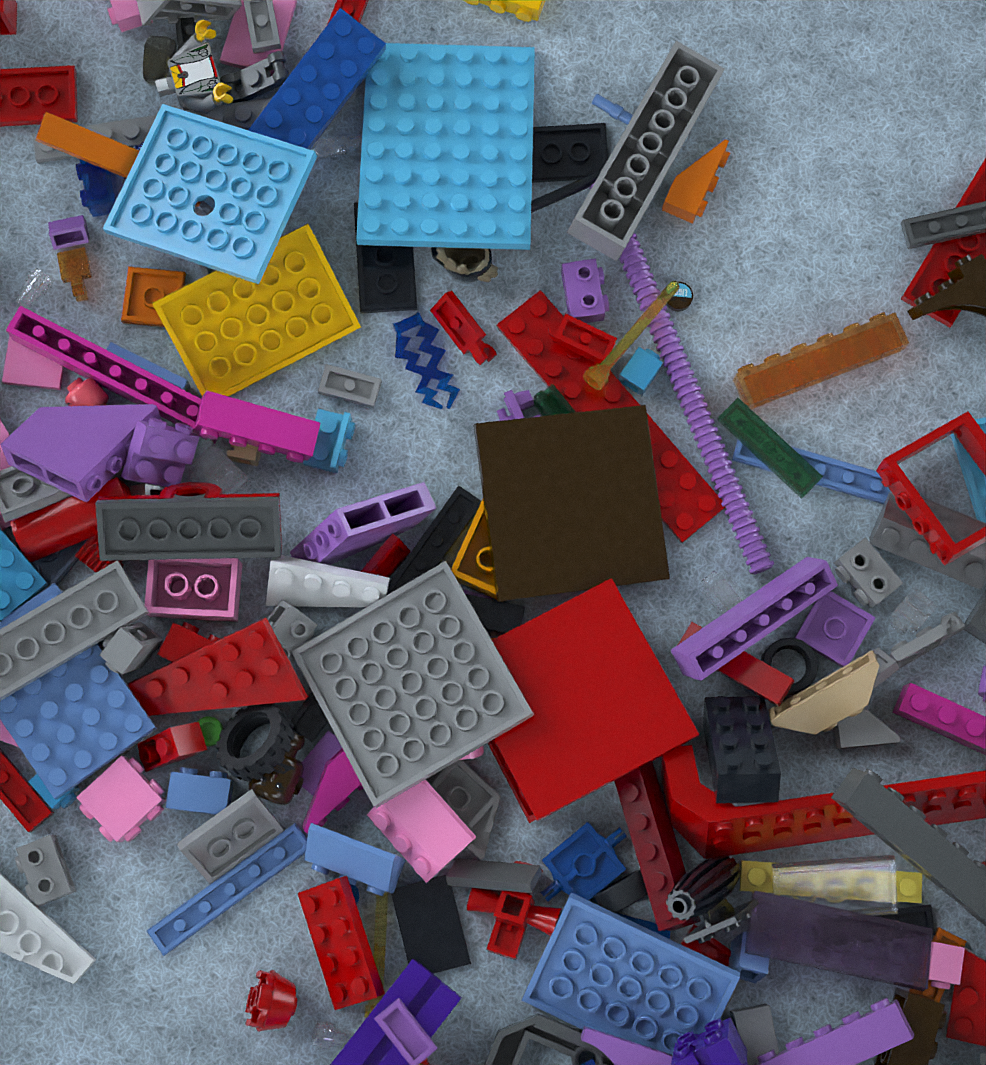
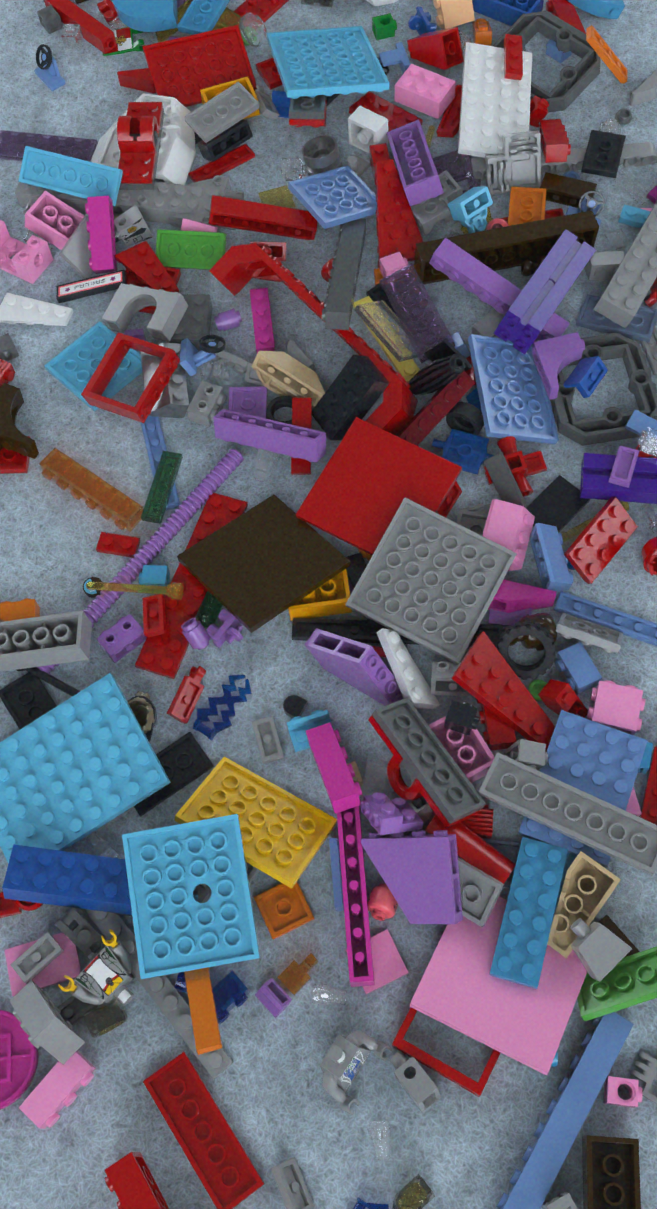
camera: 115 degrees left, 15 degrees down
(214, 601) = (461, 717): none -> black brick
(372, 440) = (294, 705): none -> black tile
(532, 375) = (195, 634): none -> medium lavender brick
(721, 355) = (118, 544): none -> red plate
(949, 593) = (191, 358): none -> medium blue piece

